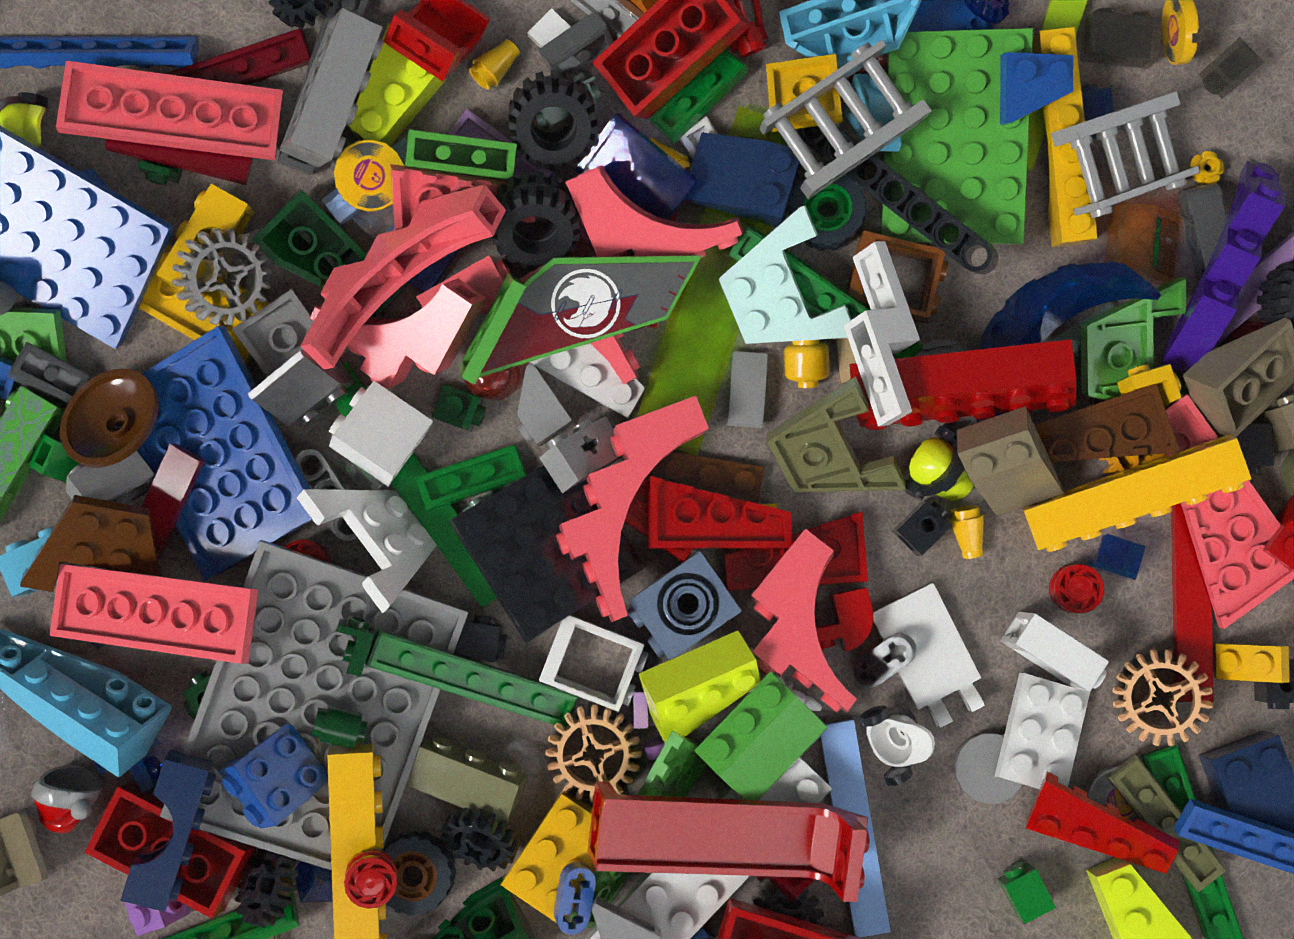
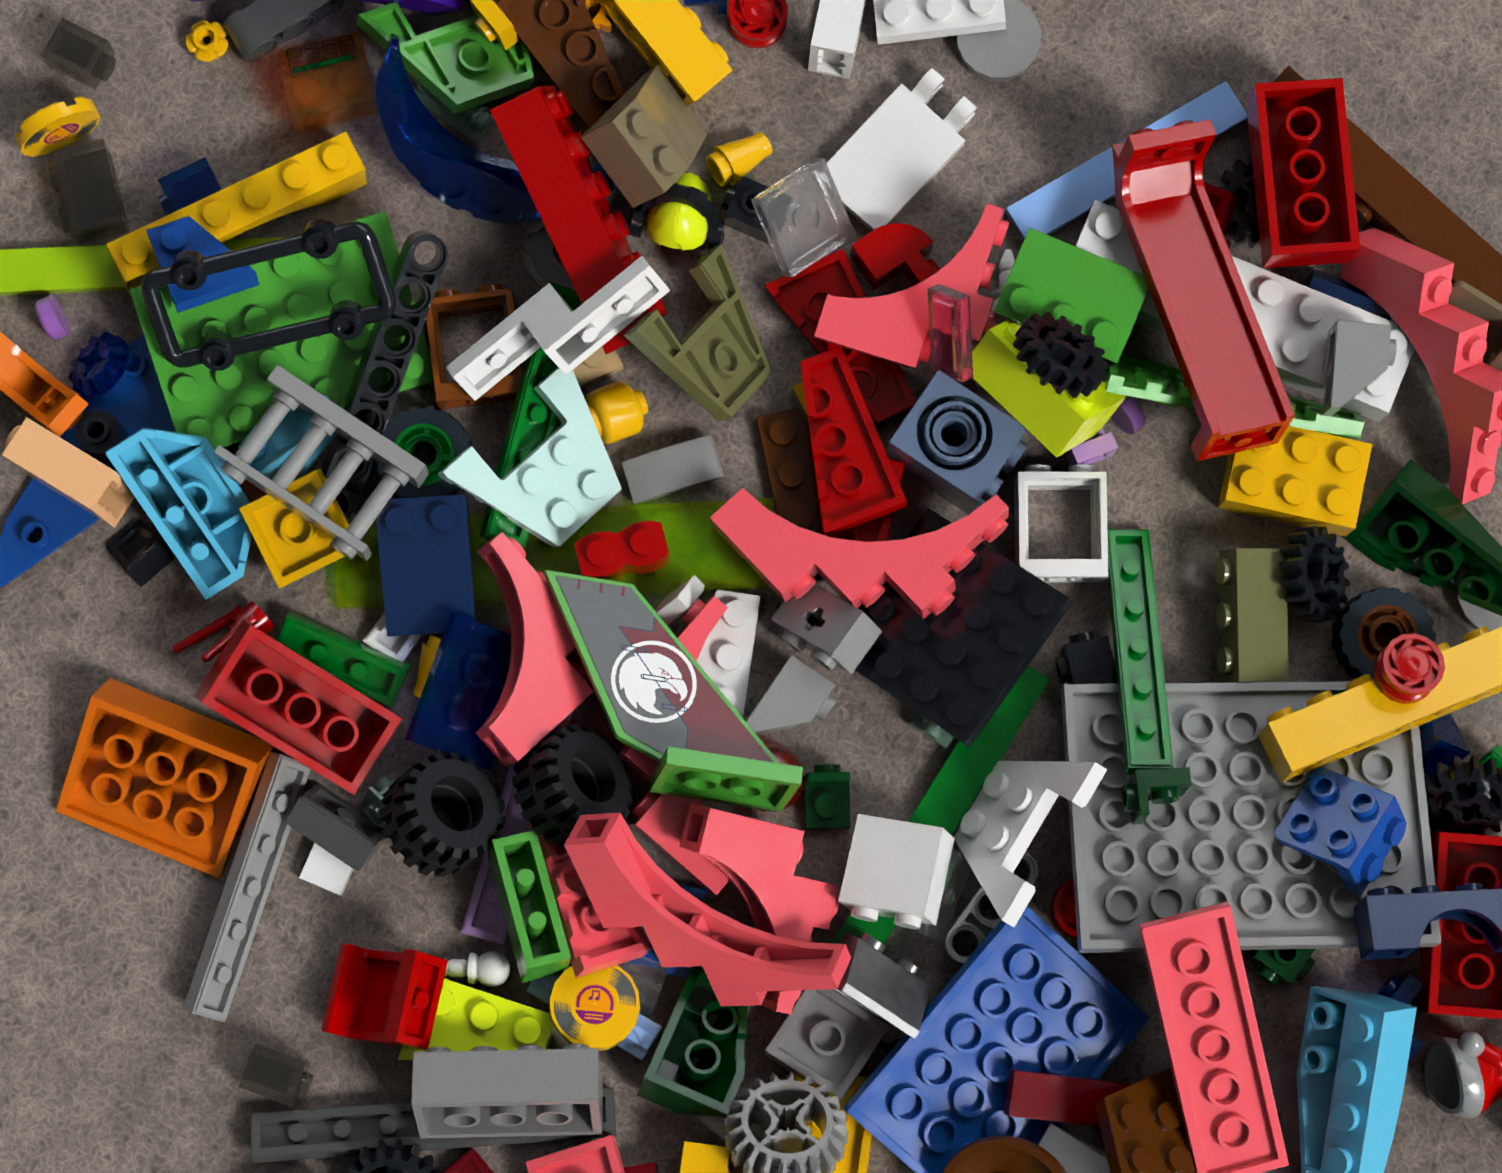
camera: 115 degrees left, 5 degrees down
(339, 727) = (1255, 775): dark green brick -> none
(432, 117) = (489, 968): none -> white bar
(470, 477) = (903, 751): green tile -> none
(493, 65) = (396, 920): yellow cone -> none
(566, 897) = (1336, 441): blue beam -> none
(584, 722) = (1150, 472): light nougat gear -> none
(645, 352) = (680, 600): none -> white tile
(695, 330) = (634, 549): none -> red brick
(712, 705) = (1060, 354): none -> black gear
(766, 630) = (950, 332): none -> clear pink tile
(889, 666) = (930, 189): black beam -> none
(900, 749) = (1018, 140): white cap -> none
(902, 559) = (803, 217): none -> clear tile
(1014, 168) = (218, 347): none -> black bar
(1105, 129) = (216, 166): light grey fence -> none

